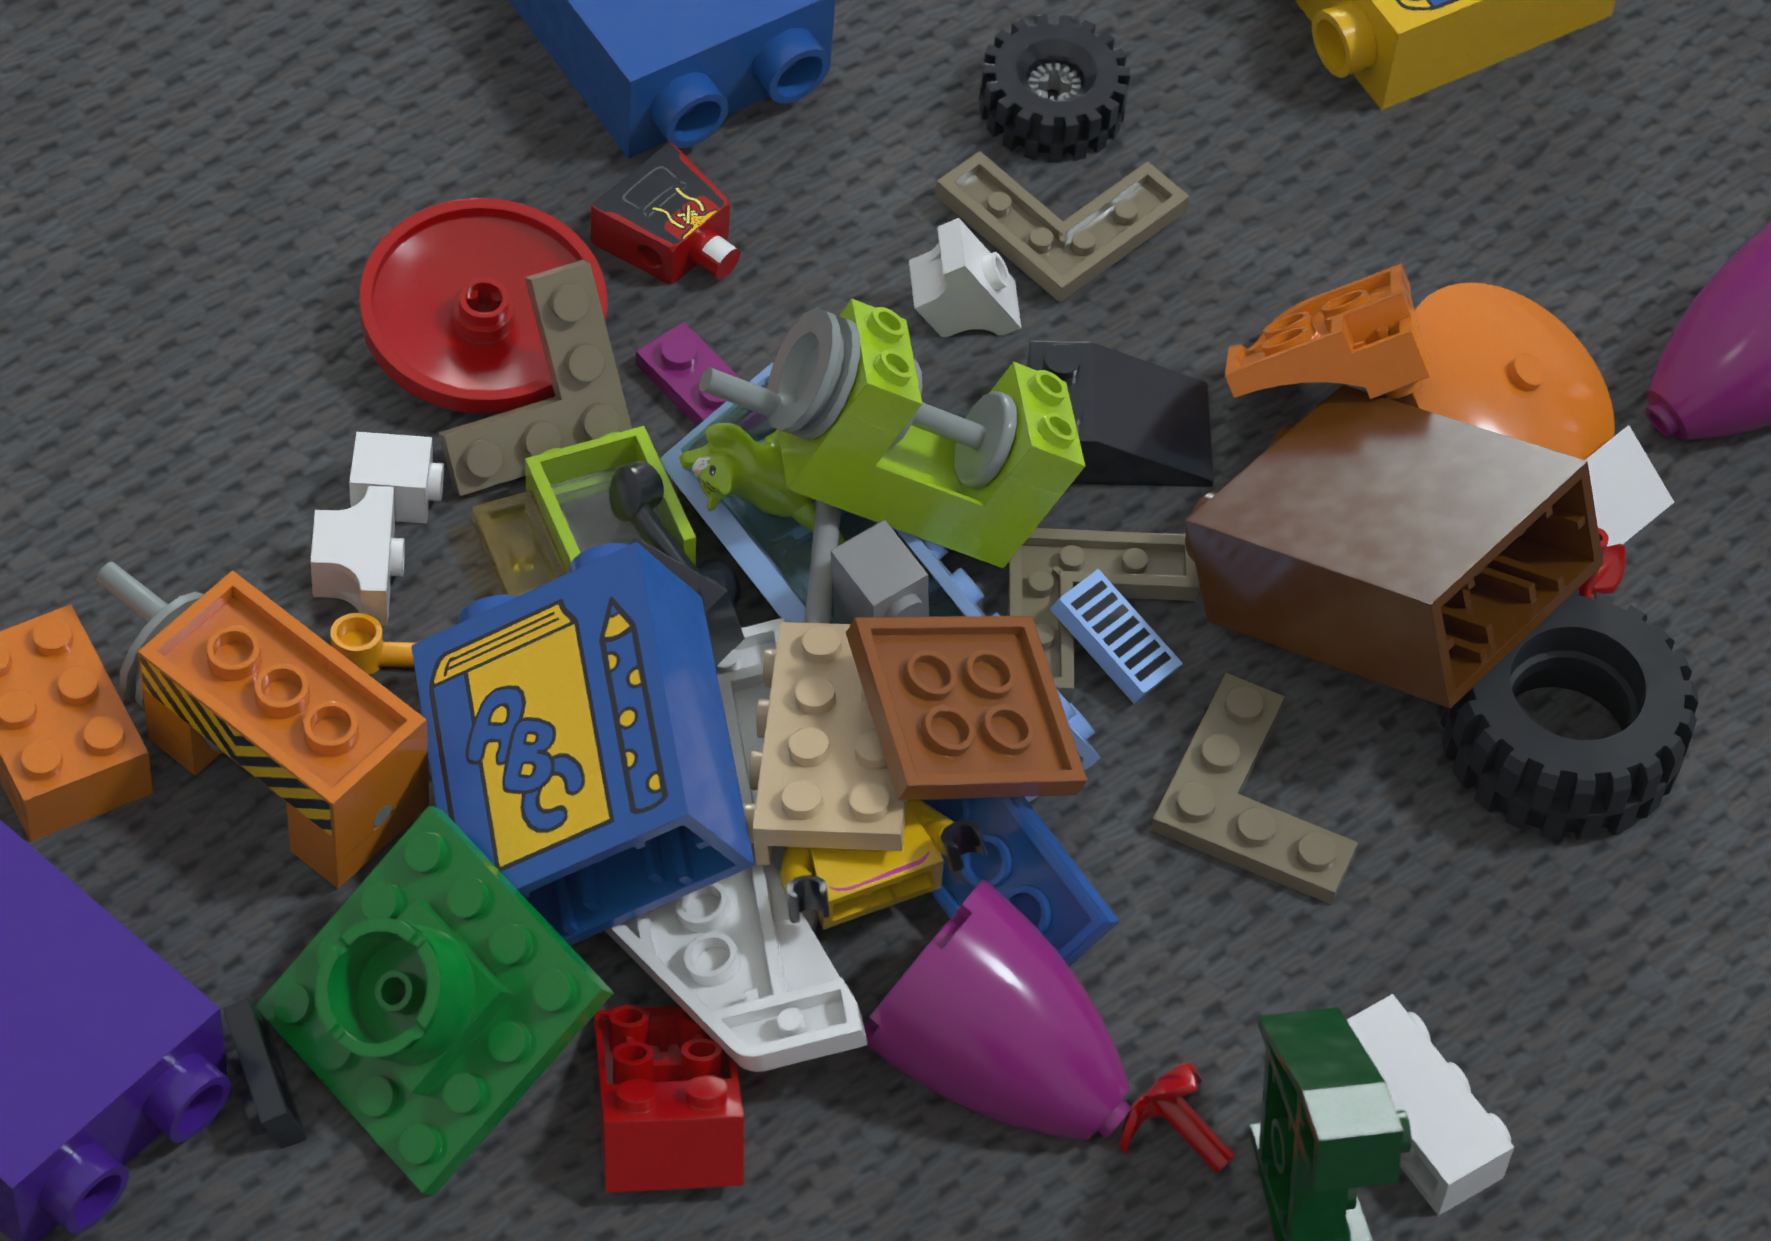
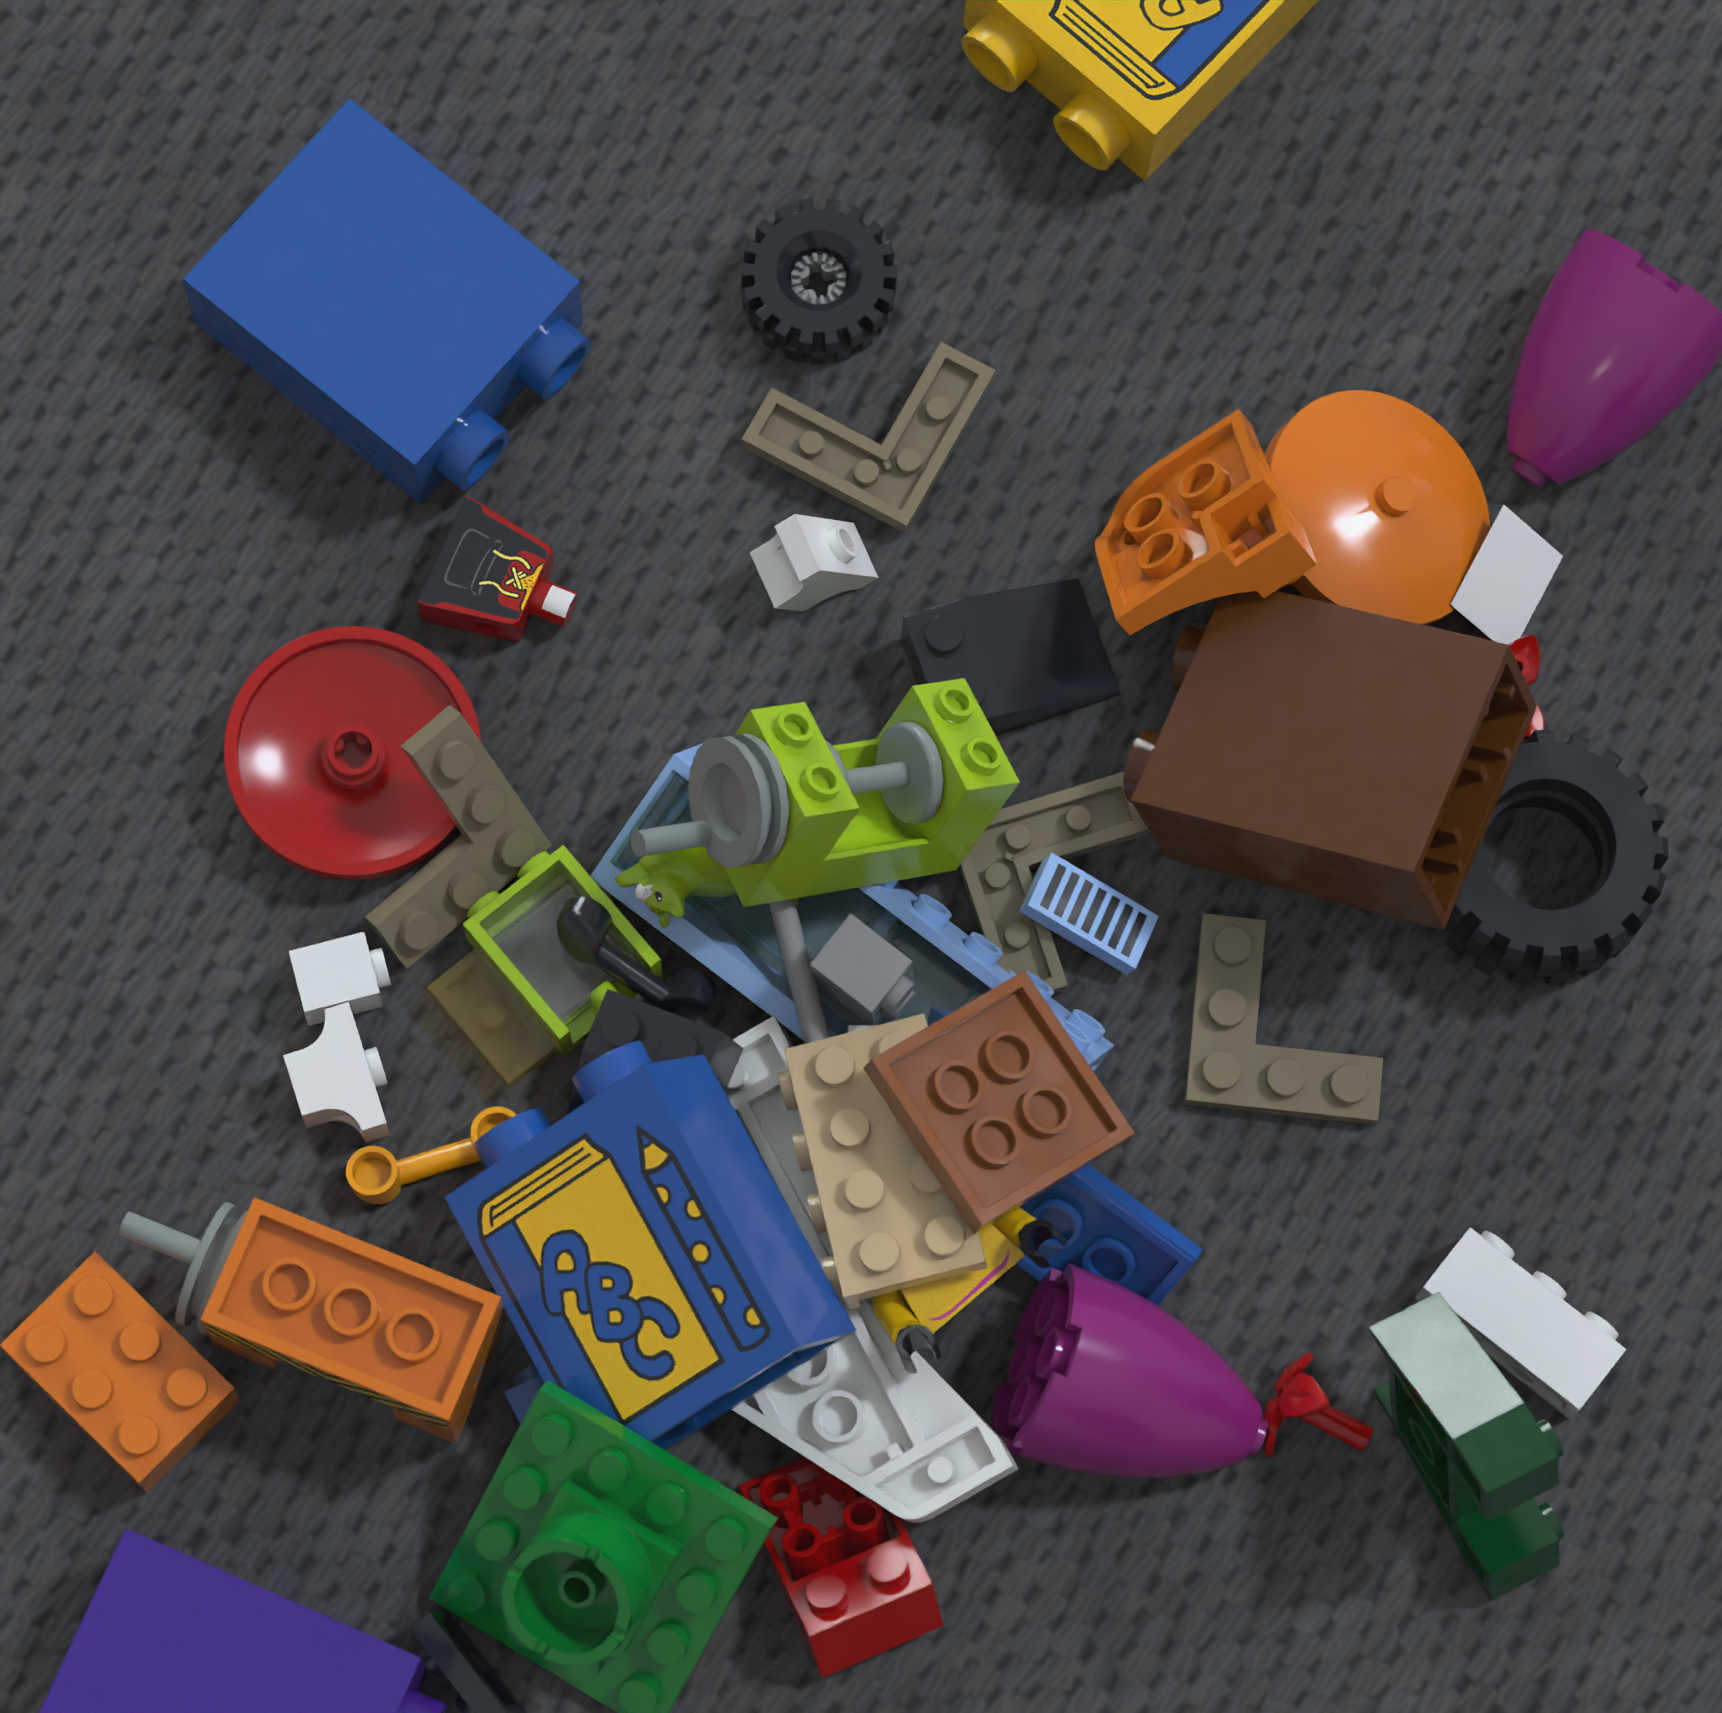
camera: 20 degrees left, 20 degrees up
(676, 366) = (587, 753): magenta plate -> none

